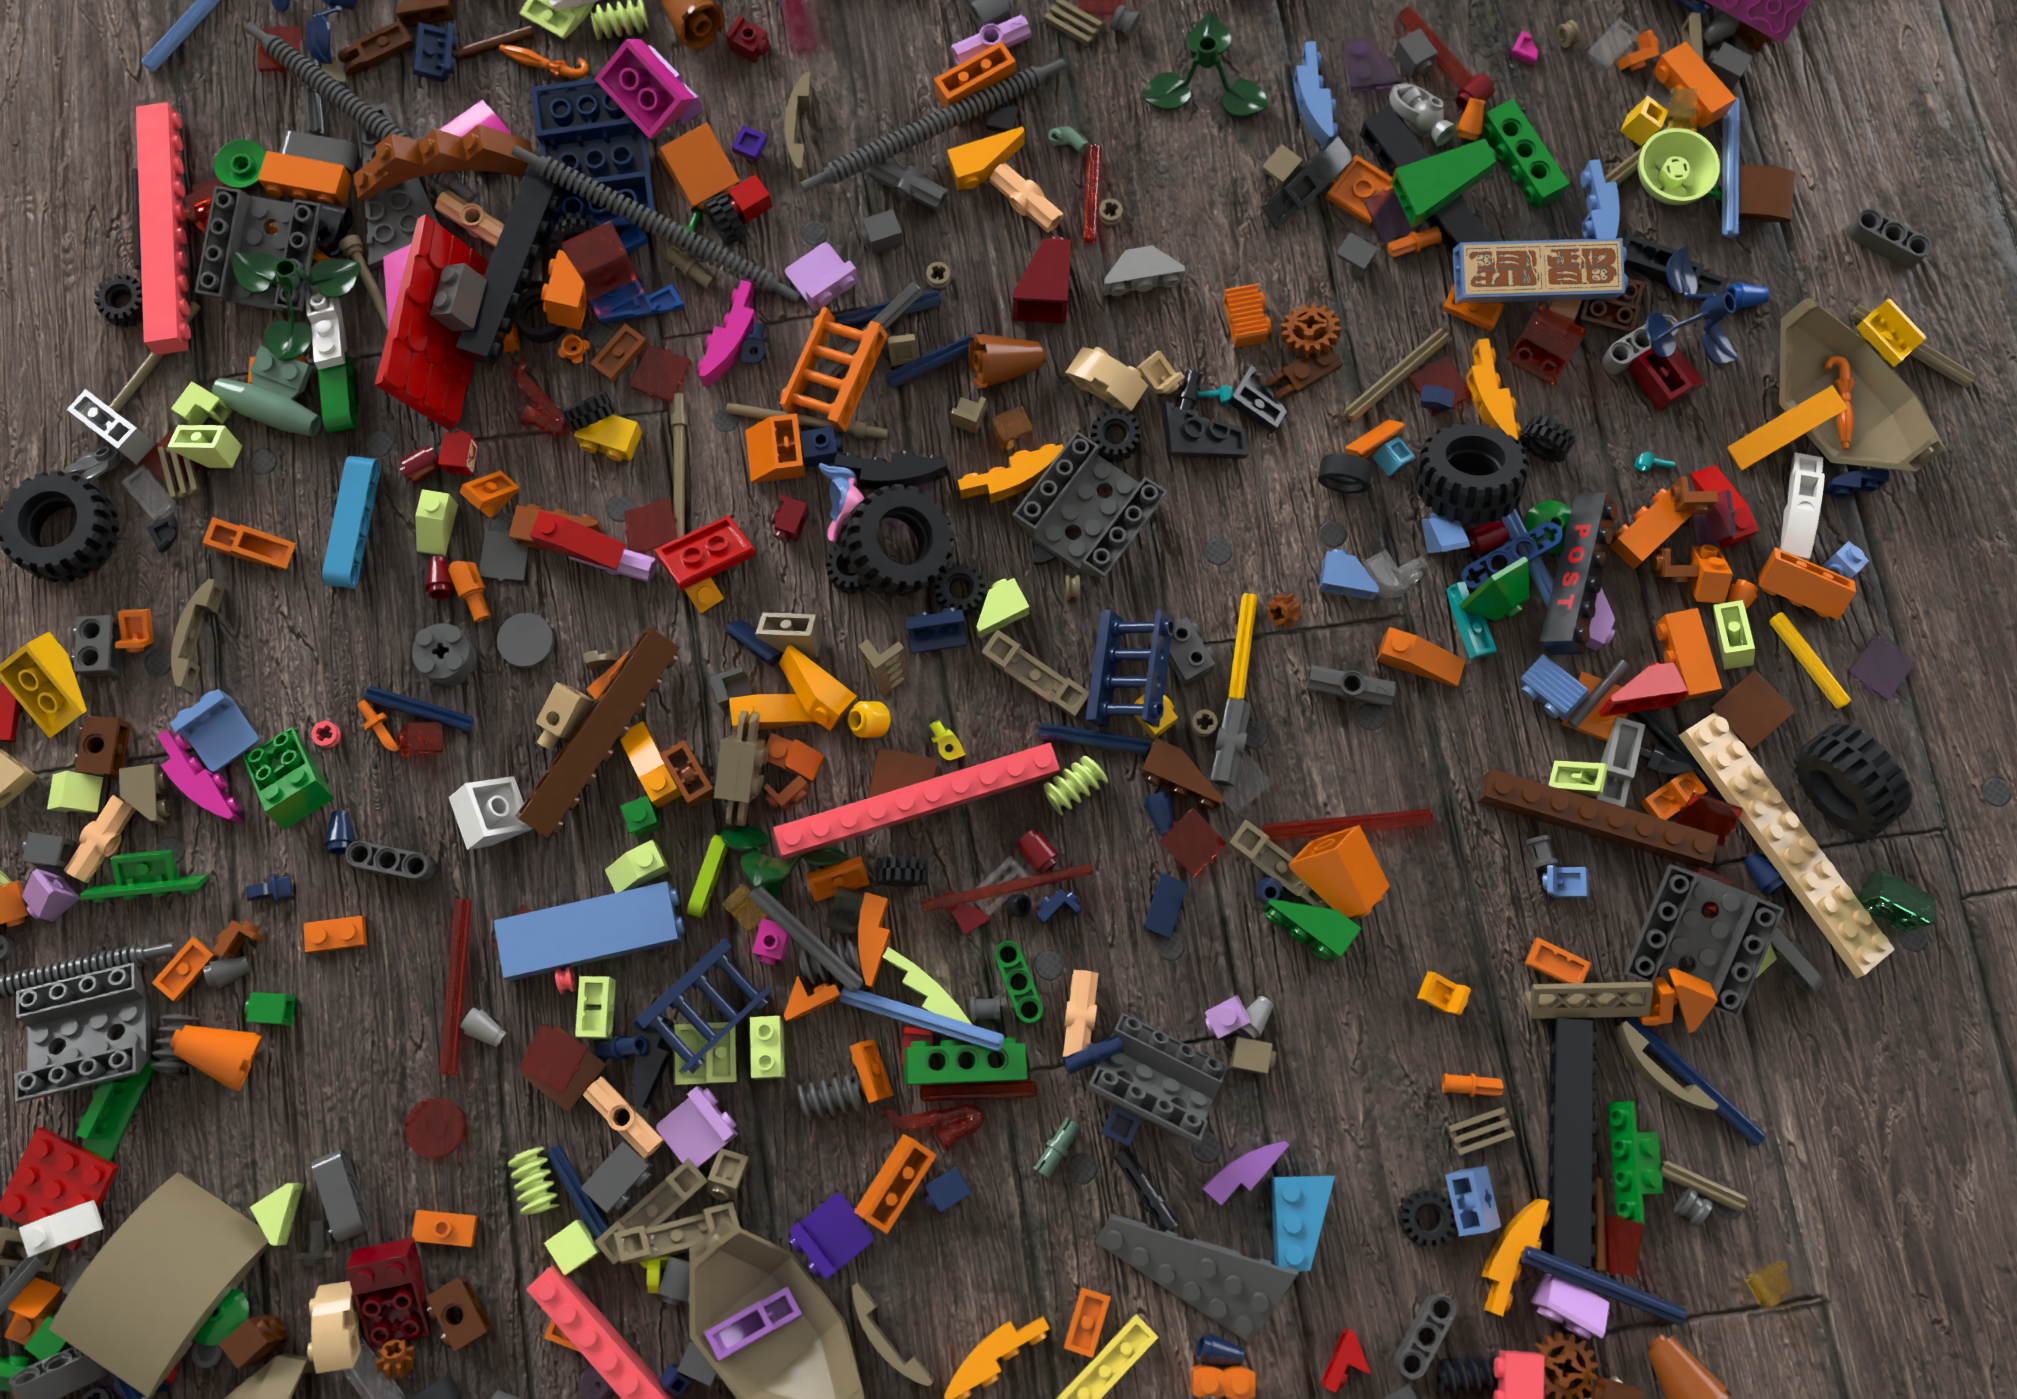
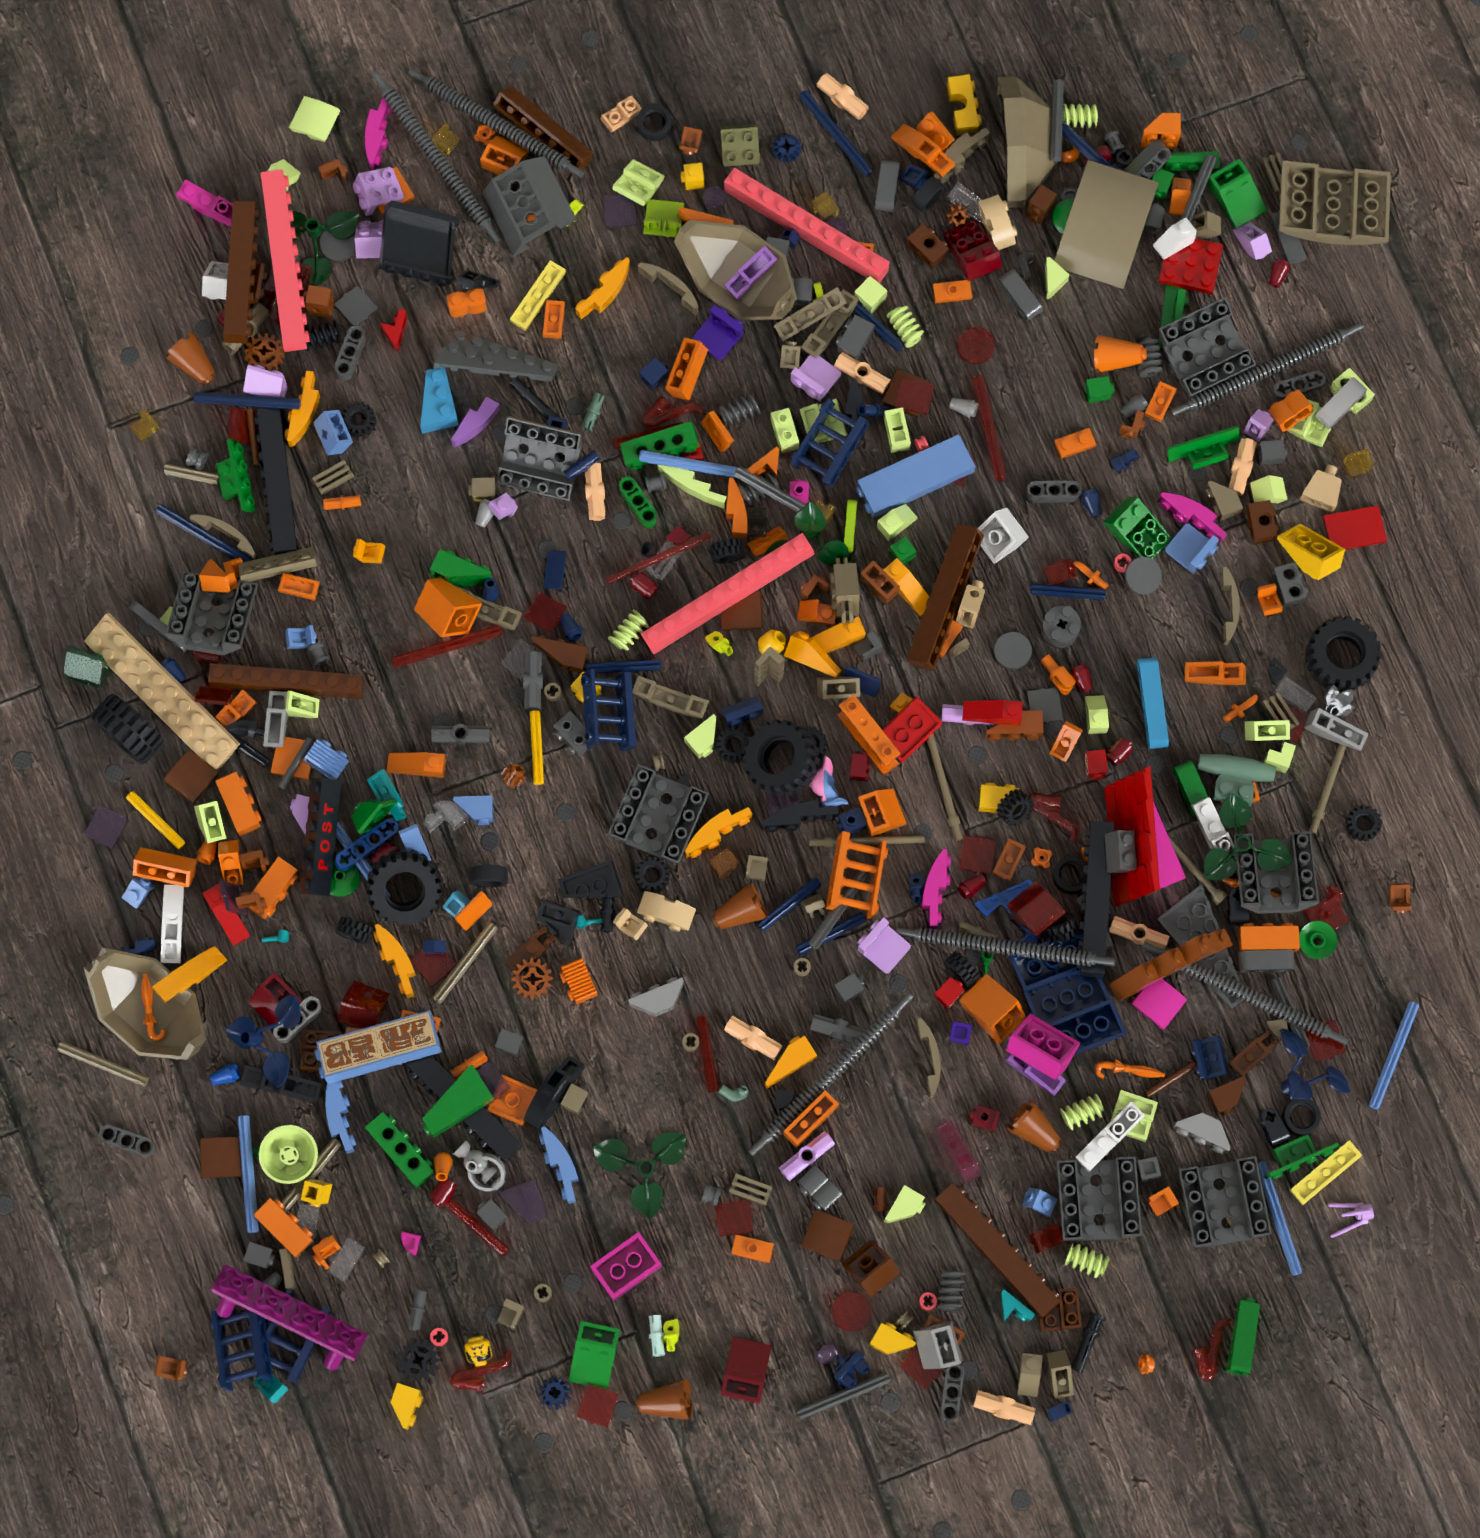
camera: 165 degrees right, 0 degrees up
(113, 194) = (1399, 897): none -> dark orange bracket
(136, 220) = (1377, 887): black bar -> none
(162, 229) = (1353, 877): coral brick -> none
(237, 487) = (1238, 710): none -> orange piece
(302, 706) = (1143, 575): none -> dark grey tile
(565, 294) = (1051, 875): orange slope -> none
(650, 526) = (952, 744): clear red piece -> none
(680, 329) = (971, 886): none -> dark red cone
(764, 550) = (868, 734): none -> orange fence
(1044, 285) = (722, 968): dark red slope -> none
(1050, 906) = (627, 553): dark blue bracket -> none
(1218, 1351) = (471, 319): dark blue cone -> none
(1651, 689) = (263, 771): slope -> none
(1683, 109) = (291, 1201): clear yellow panel -> none
(1890, 332) = (124, 1059): yellow bracket -> none

